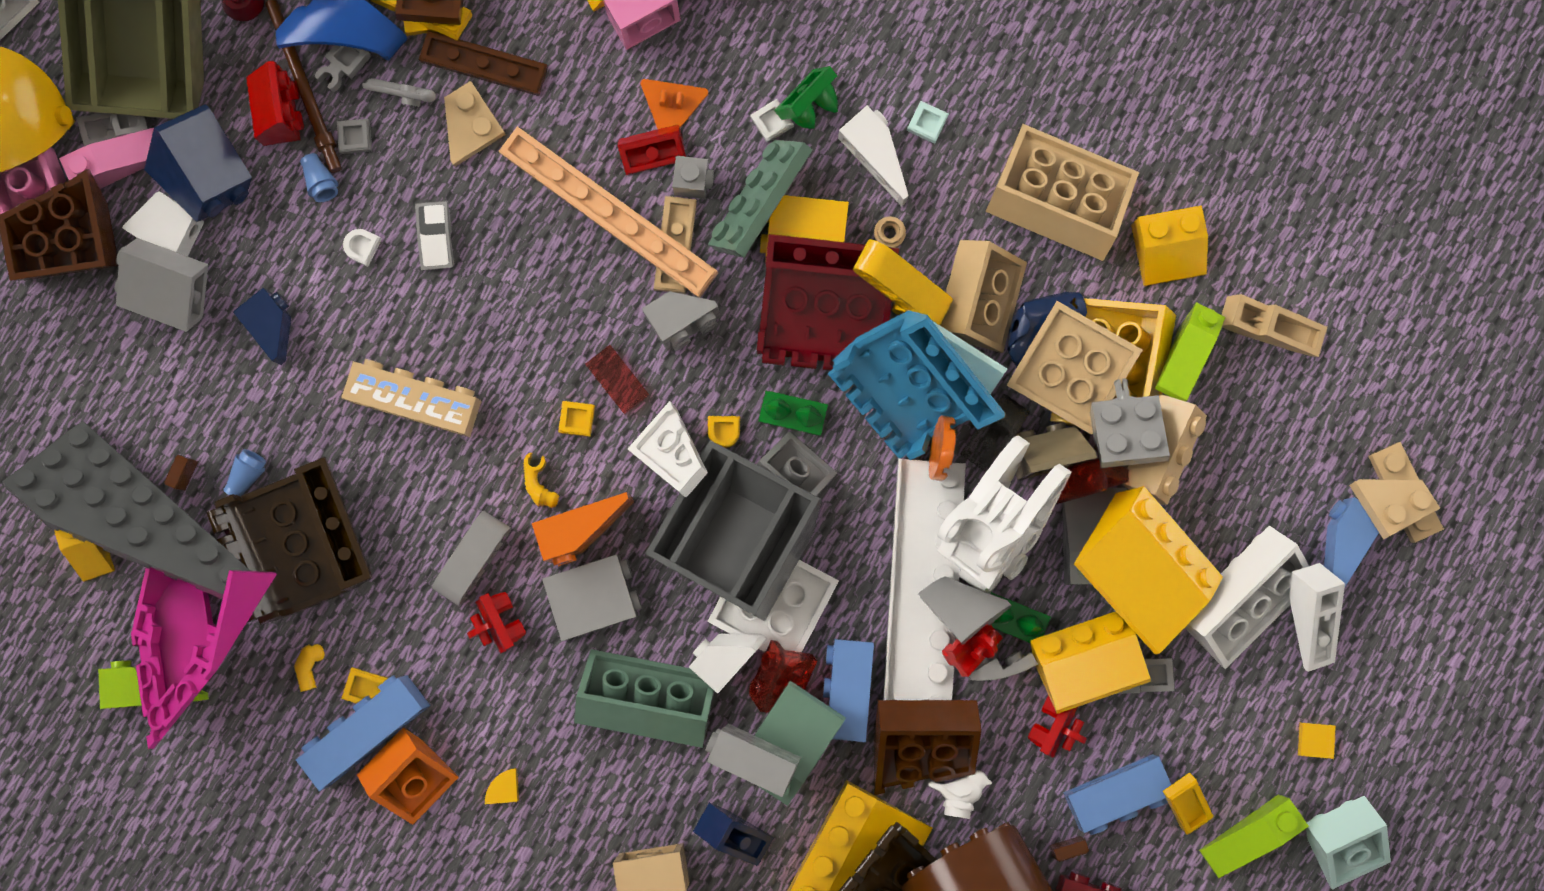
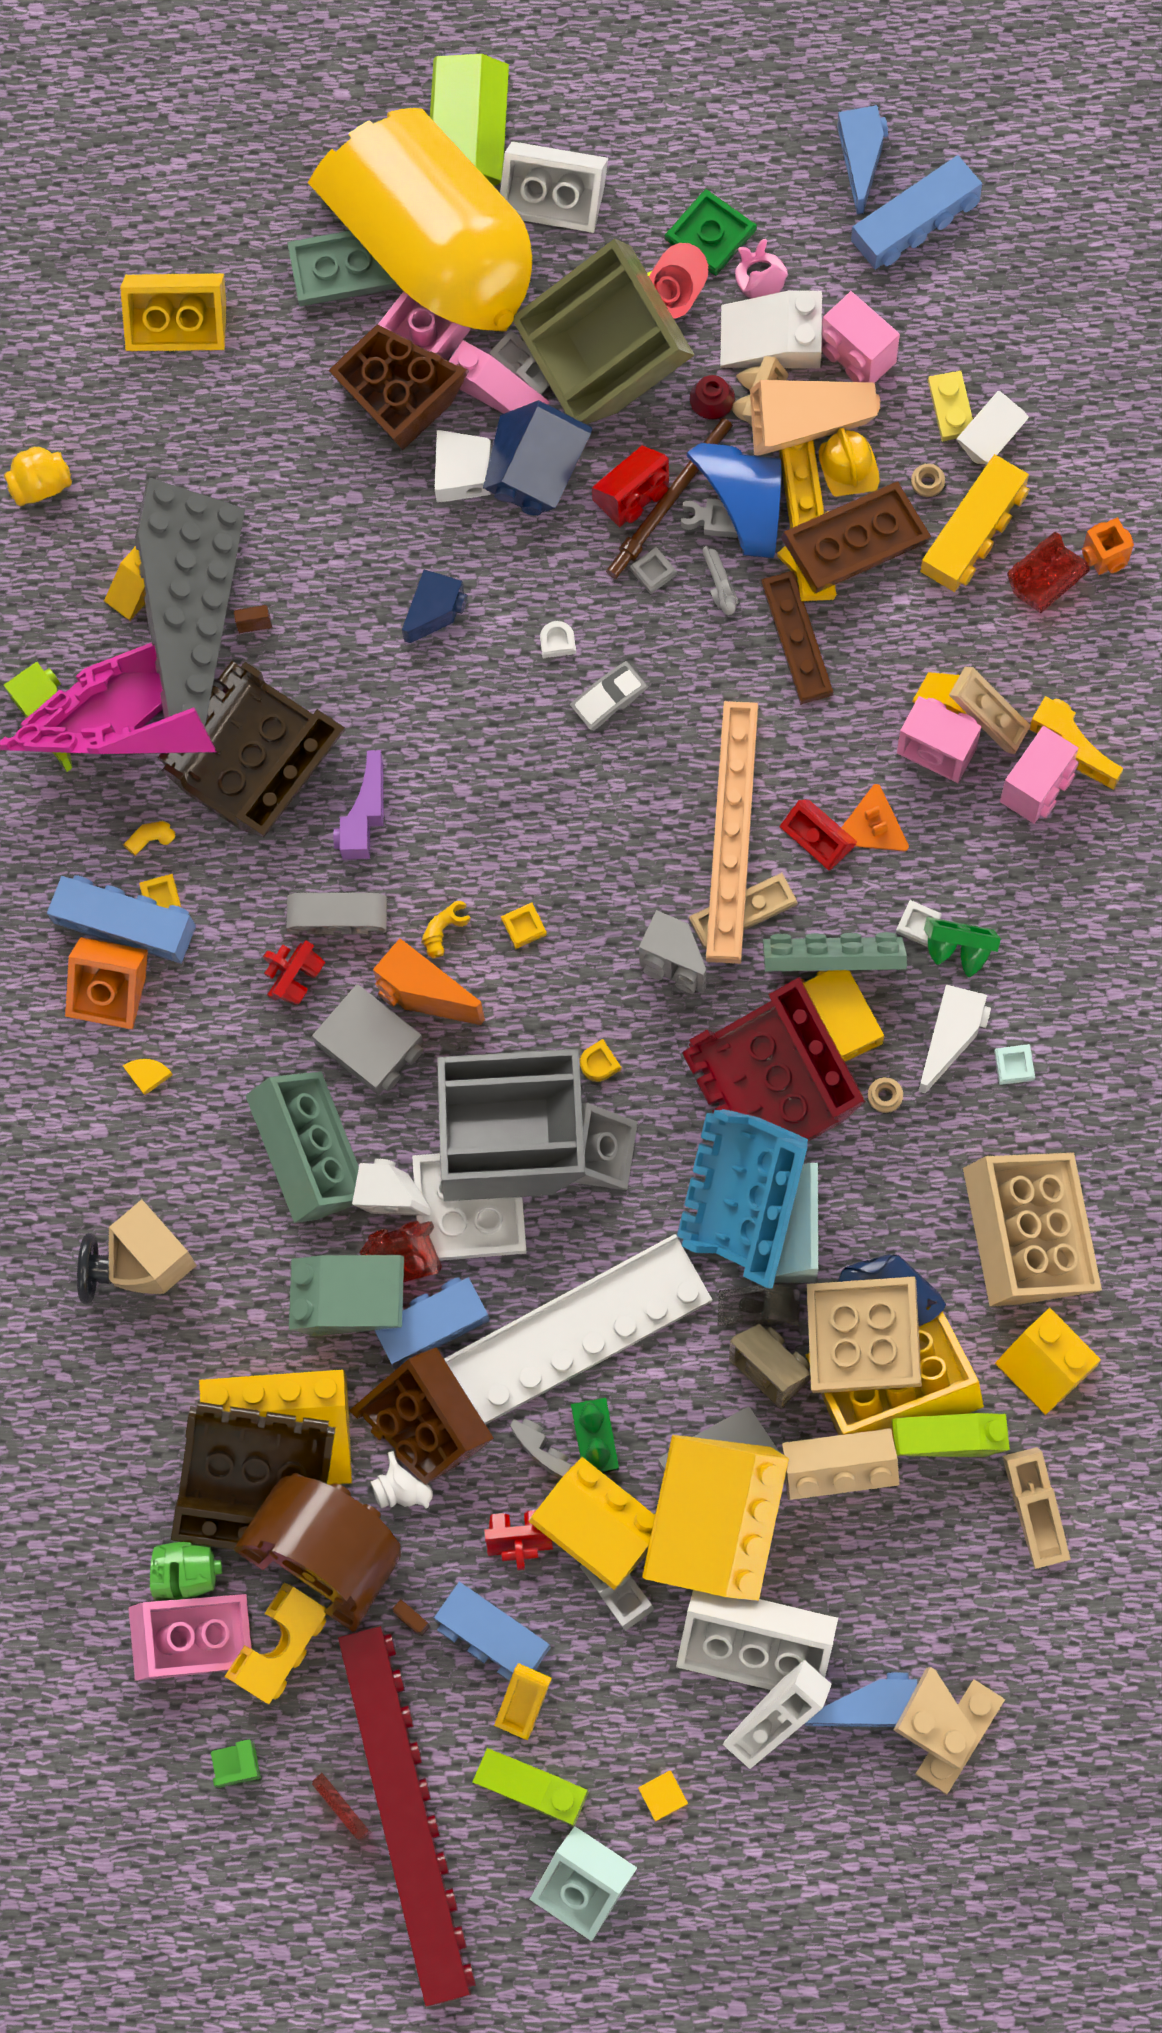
camera: 60 degrees right, 10 degrees down
(161, 284) = (408, 495): light grey brick -> none
(244, 472) = (288, 672): medium blue cone -> none
(318, 179) = (591, 567): medium blue cone -> none
(410, 398) = (447, 771): tan brick -> none
(413, 502) = (367, 811): none -> medium lavender slope
(469, 123) = (732, 660): tan wing -> none
(617, 379) = (583, 938): clear red tile -> none
(670, 451) = (546, 1022): white wing -> none
(692, 177) = (813, 883): light grey brick -> none
(732, 834) = (232, 1302): dark blue slope -> none
(752, 759) = (311, 1259): light grey brick -> none
(793, 413) = (656, 1114): green tile -> none
(901, 282) = (832, 1124): yellow beam -> none
(942, 448) = (707, 1261): orange tile -> none
(962, 607) = (572, 1371): light grey slope -> none
(974, 651) = (544, 1407): red hips -> none
(984, 293) = (881, 1214): tan slope -> none
(995, 525) = (657, 1343): white piece -> none
(1091, 479) = (765, 1410): clear red bracket -> none
(1129, 429) = (833, 1411): light grey plate -> none

